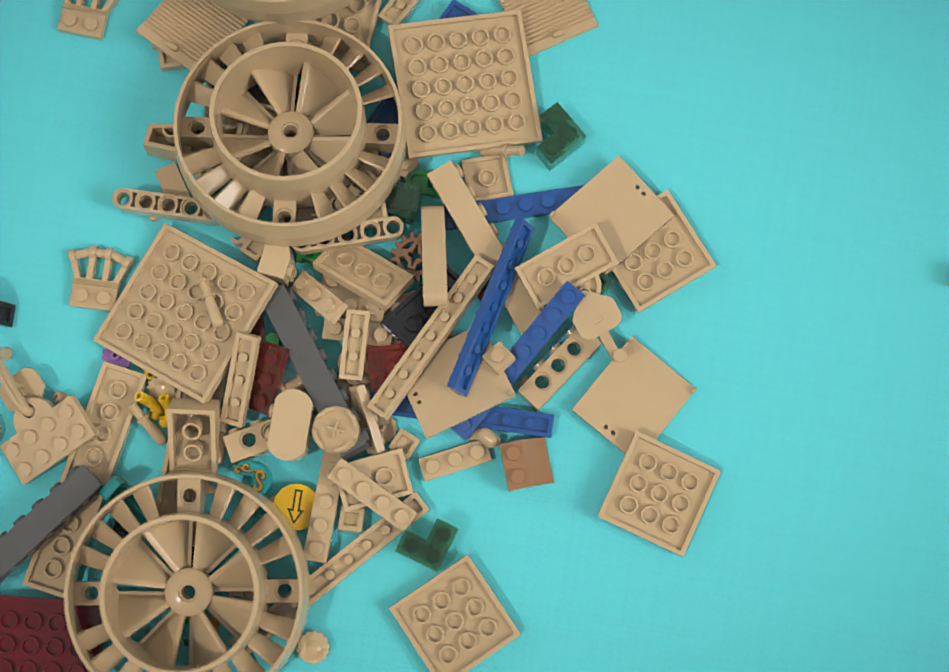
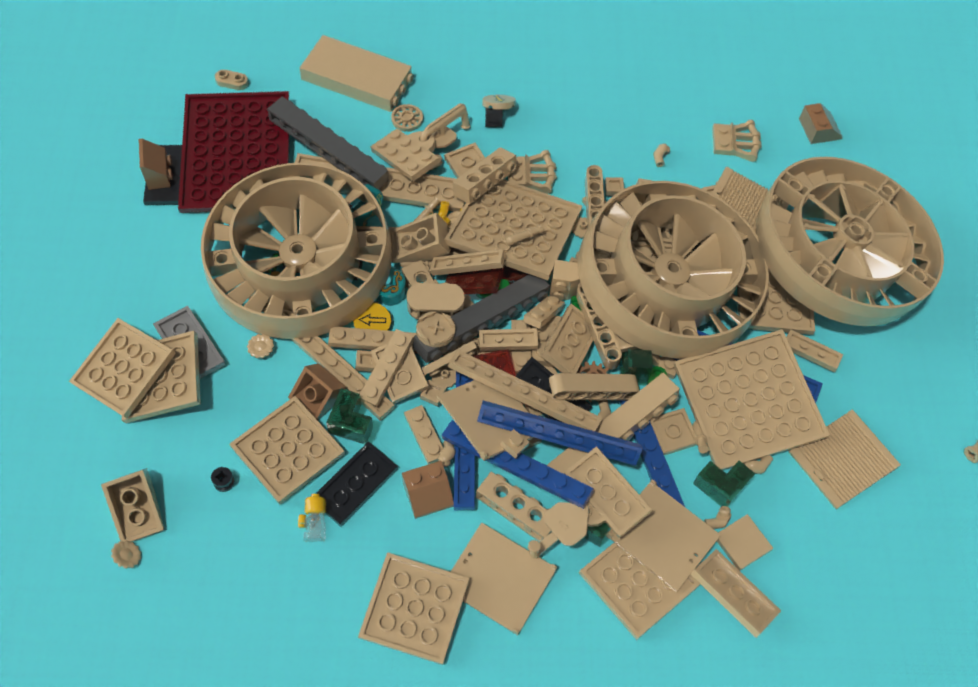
camera: 75 degrees right, 20 degrees down
(71, 359) = (463, 159): none -> tan plate
(81, 316) = (484, 175): none -> tan brick
(93, 109) = (658, 154): none -> tan arm
(139, 176) = (613, 185): none -> tan plate
(195, 230) = (580, 227): none -> tan piece
(384, 580) = (317, 390): none -> medium nougat slope
(459, 252) = (604, 409): none -> tan arm
(505, 546) = (356, 483): none -> black tile
(542, 95) = (759, 467): none -> tan arm
(550, 594) = (315, 524): none -> piece
(598, 151) = (721, 518): none -> tan arm
(624, 133) = (743, 542): none -> tan tile
(681, 155) = (736, 593): none -> tan plate

